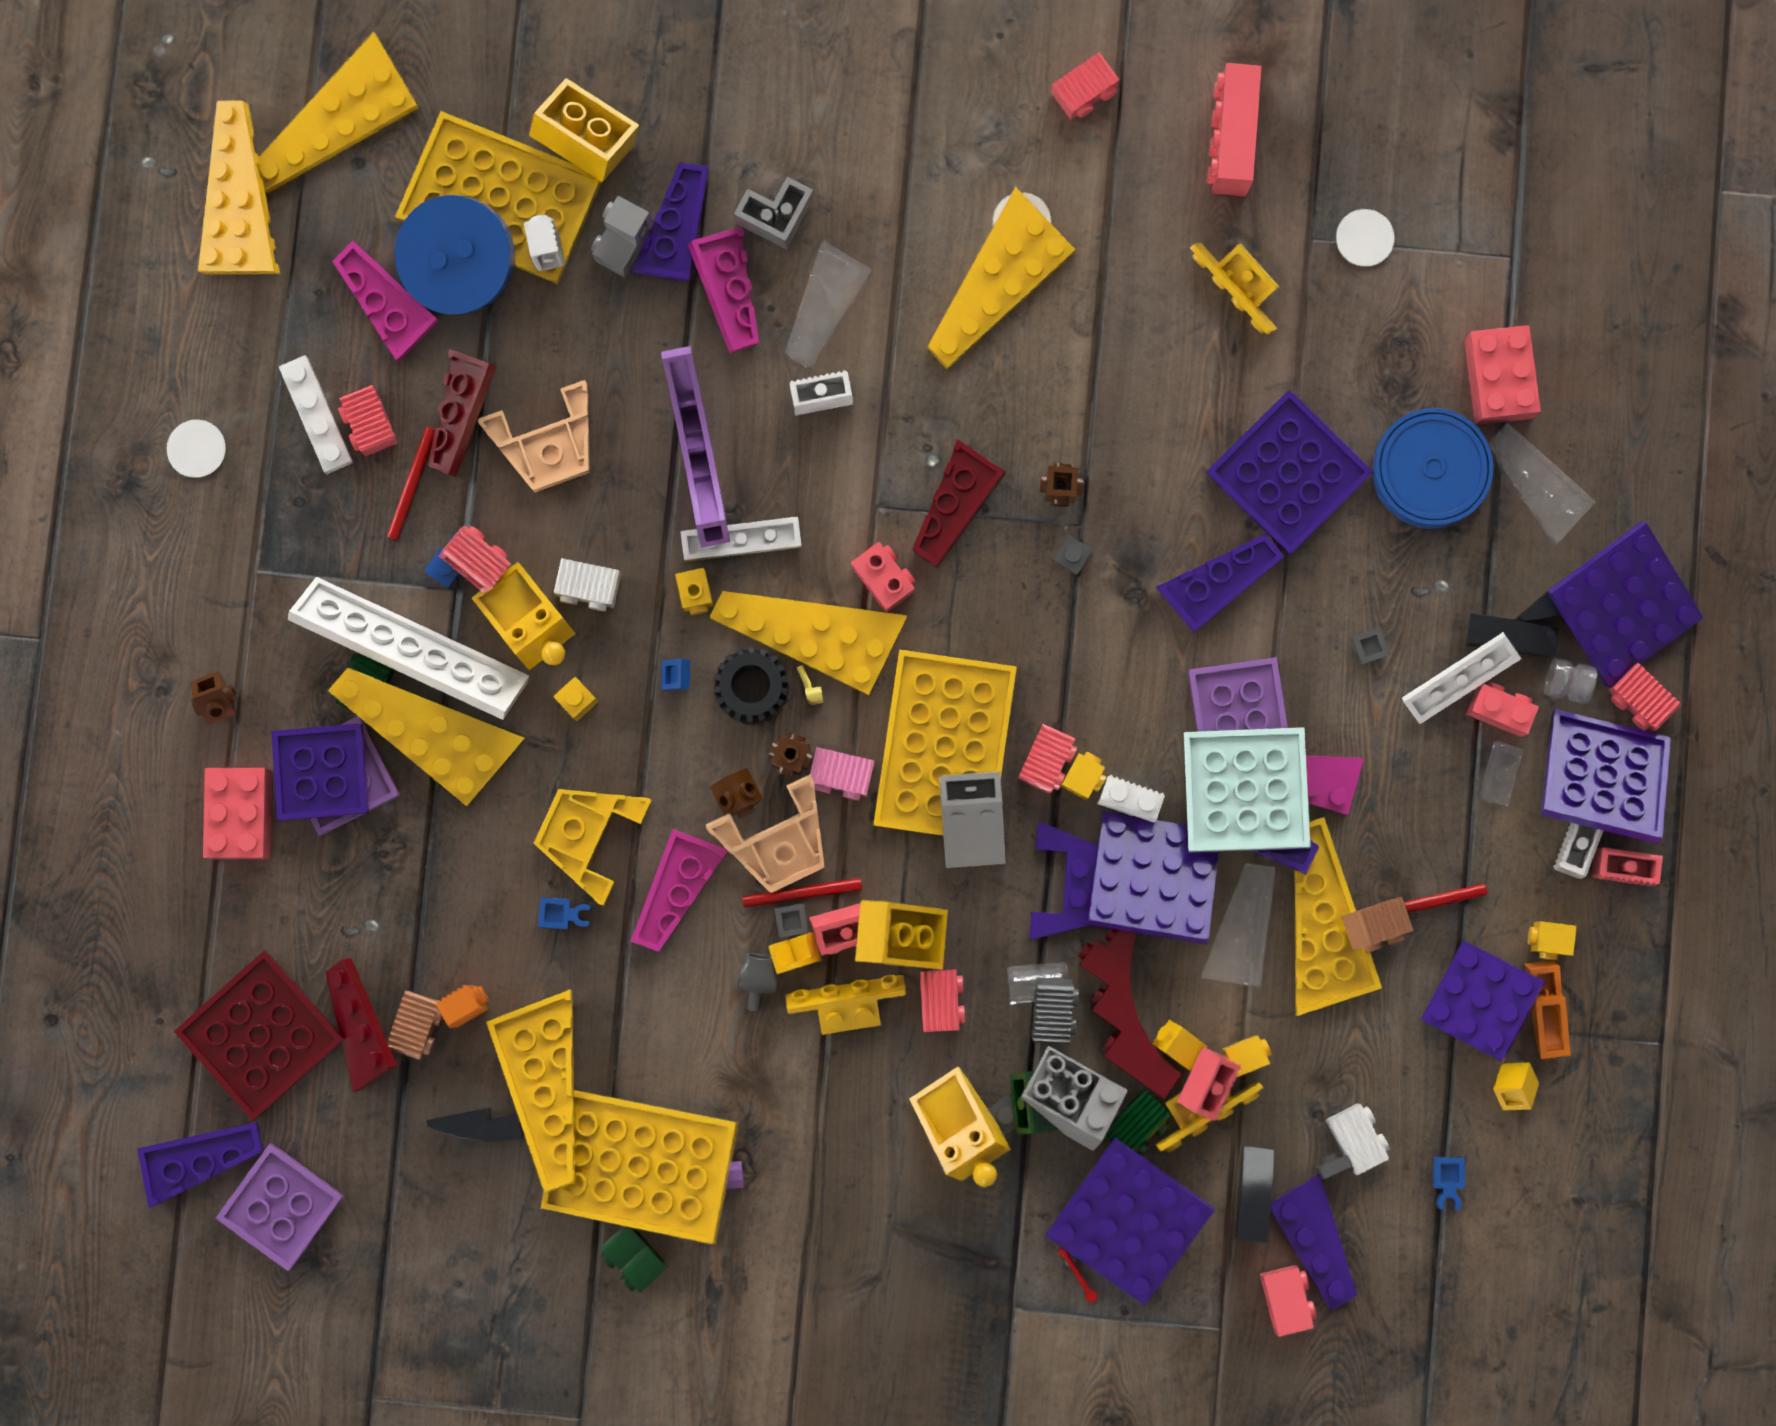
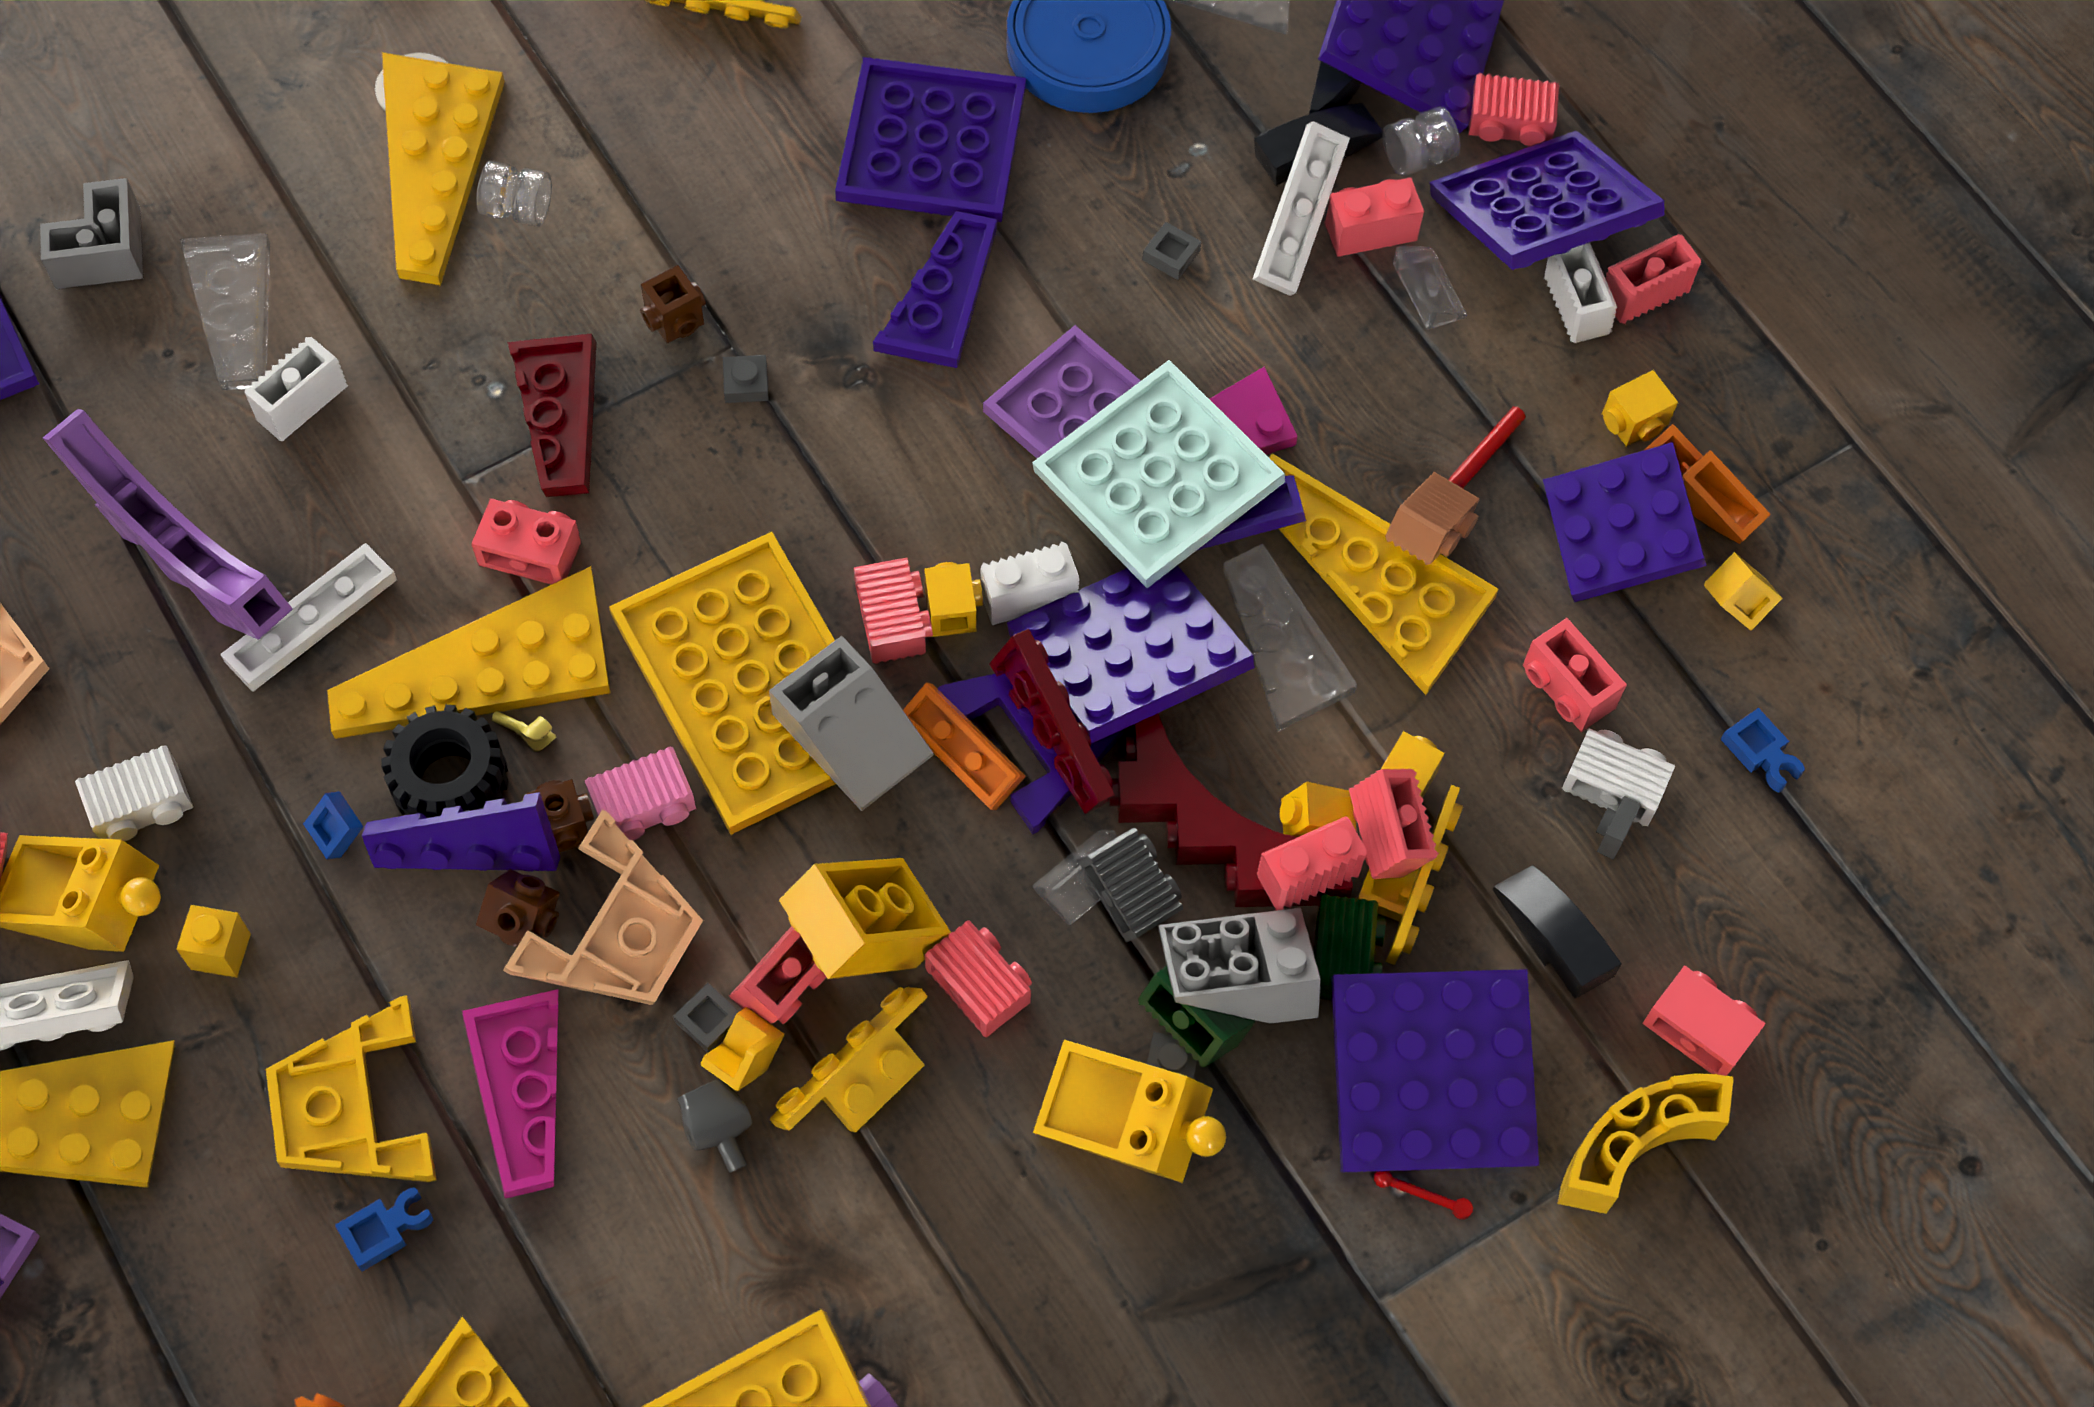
camera: 40 degrees left, 20 degrees down
(694, 591) = (288, 711): yellow brick -> none
(724, 276) = (82, 348): dark pink wing -> none
(761, 763) = (480, 839): none -> dark purple wing
(802, 892) = (696, 978): red bar -> none
(1024, 343) = (507, 192): none -> clear wheel
(1026, 865) = (963, 747): none -> orange tile
(1077, 896) = (1054, 724): none -> dark red wing
(1148, 1075) = (1311, 863): none -> coral brick
(1205, 1324) = (1649, 1116): none -> yellow brick
(1311, 1231) = (1668, 931): dark purple wing -> none
(1378, 1068) = (1573, 675): none -> coral brick

